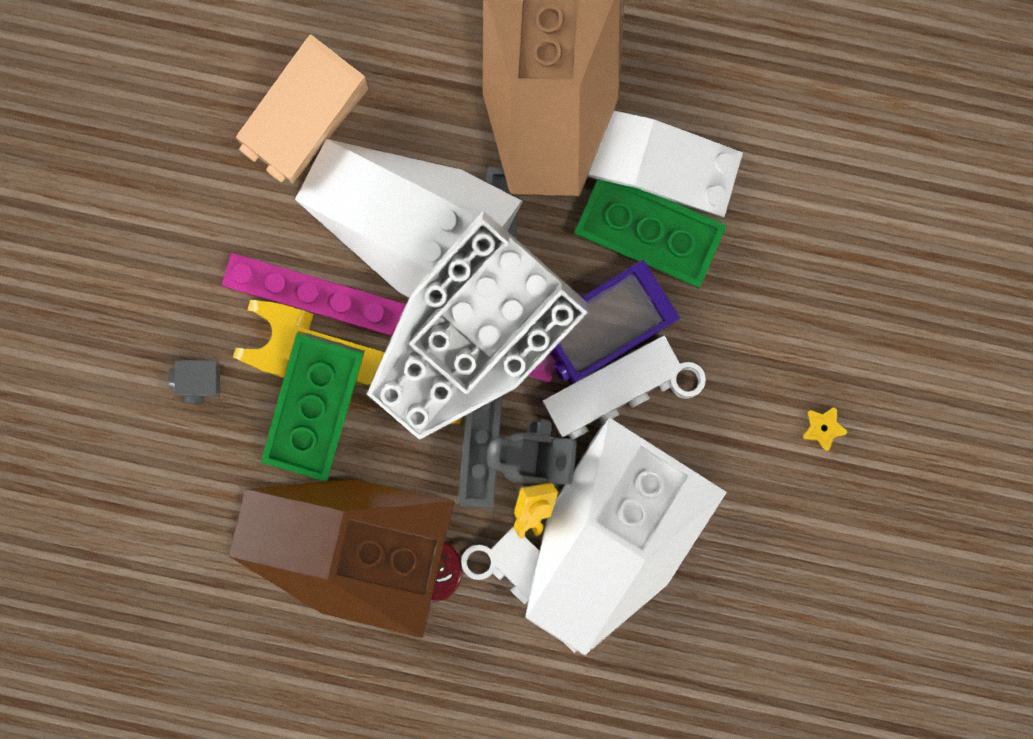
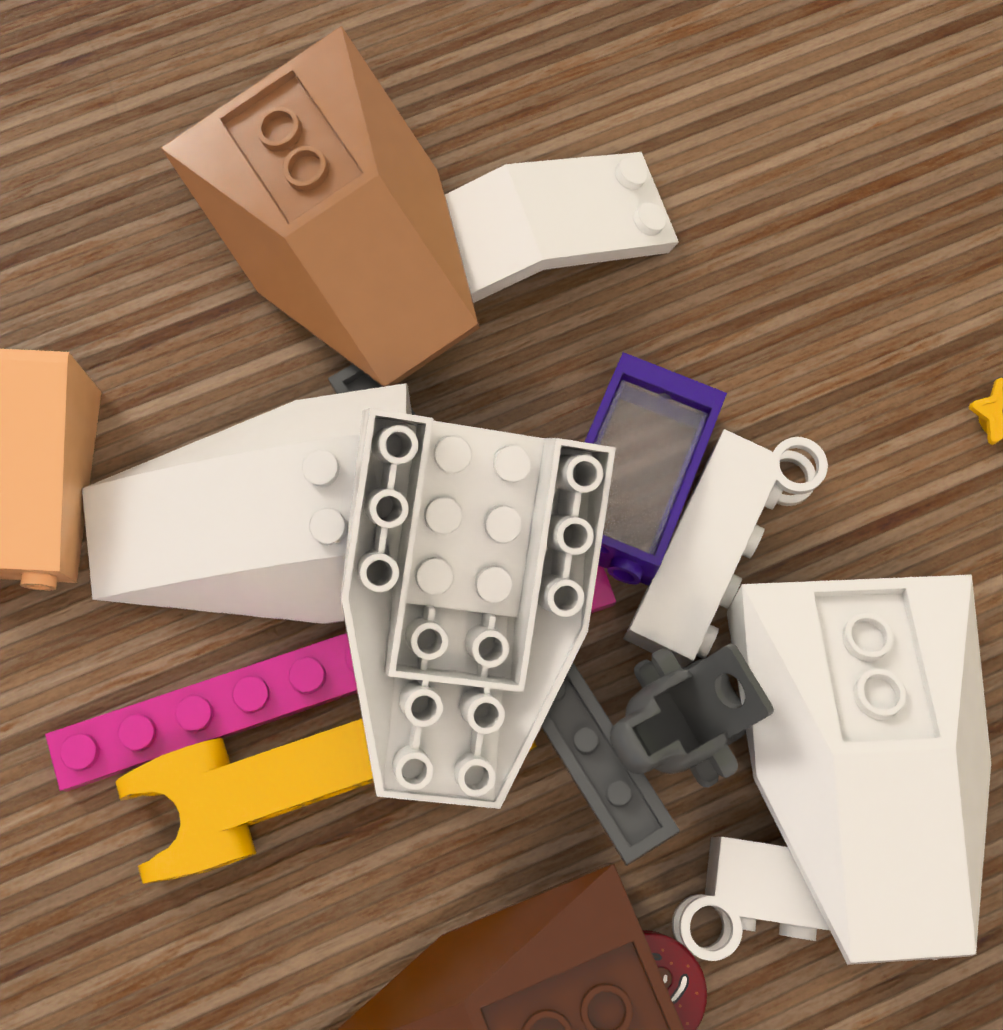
camera: 35 degrees left, 10 degrees down
(195, 380) = (107, 959): dark grey brick -> none
(312, 406) = (307, 873): green plate -> none
(532, 506) = (737, 786): yellow plate -> none
(650, 230) = (588, 315): green plate -> none

